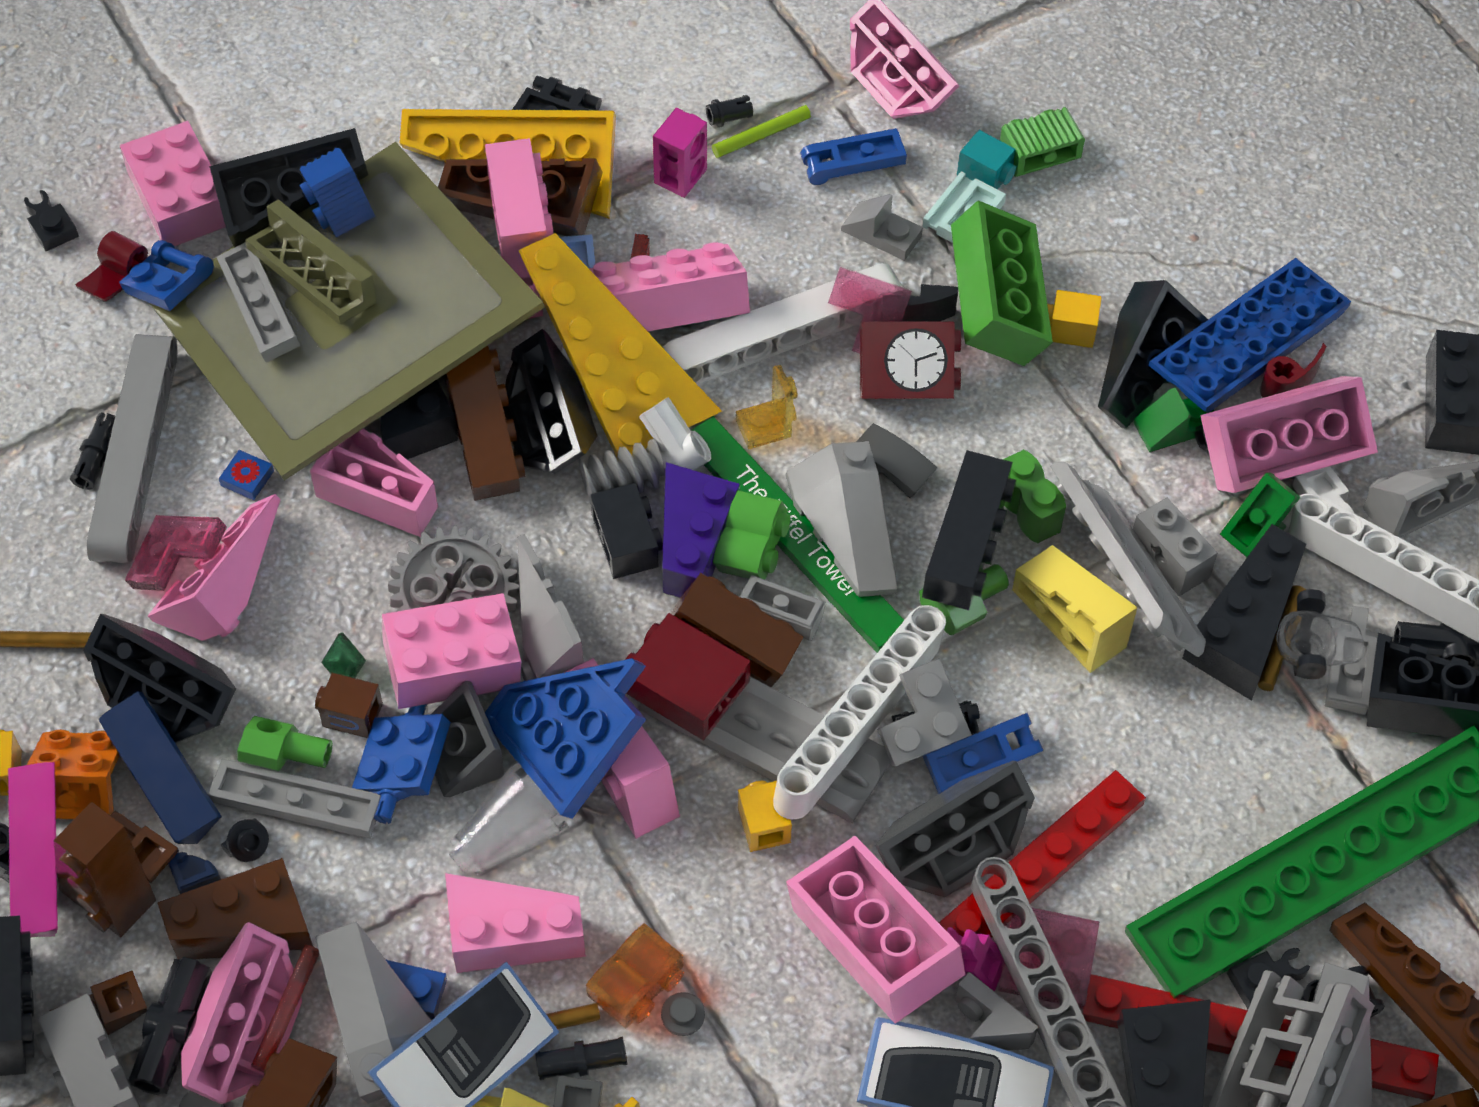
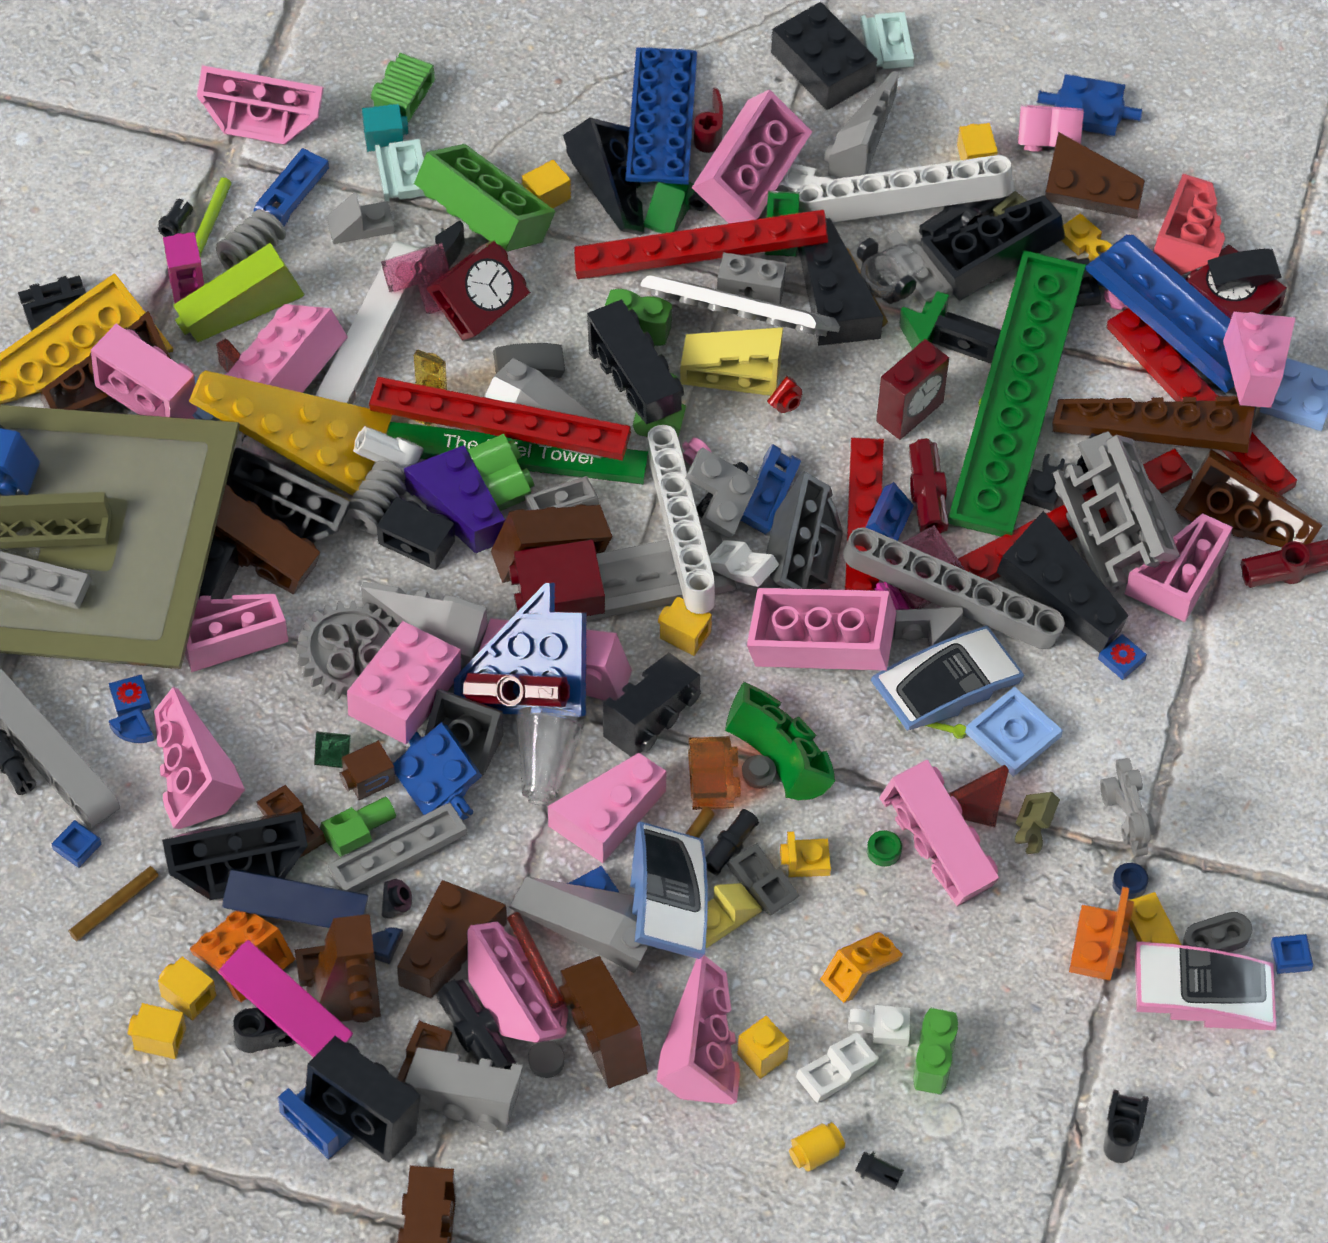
camera: 45 degrees left, 0 degrees up
(65, 563) = (76, 843): none -> blue tile
(168, 542) = (135, 771): clear pink plate -> none
(220, 501) = (132, 727): none -> blue tile
(252, 680) = (285, 801): none -> reddish brown slope
(528, 740) = (534, 689): none -> dark red piece
(650, 862) = (650, 705): none -> black wedge
(706, 210) = (238, 295): none -> lime slope
(735, 1006) = (784, 740): none -> green brick
(764, 172) = (249, 238): none -> light grey piece
(799, 489) = (500, 418): none -> red plate
(870, 800) = (738, 563): none -> white slope
(953, 663) = (692, 448): none -> bright pink plate
(1066, 876) = (890, 512): none -> blue plate
(1094, 680) = (786, 396): none -> red plate
(1139, 880) = (928, 485): none -> dark red piece
(1161, 476) = (700, 244): none -> red plate
(1214, 770) = (912, 389): none -> dark red brick
(1301, 725) = (919, 325): none -> green slope
(1336, 761) = (966, 336): none -> black panel

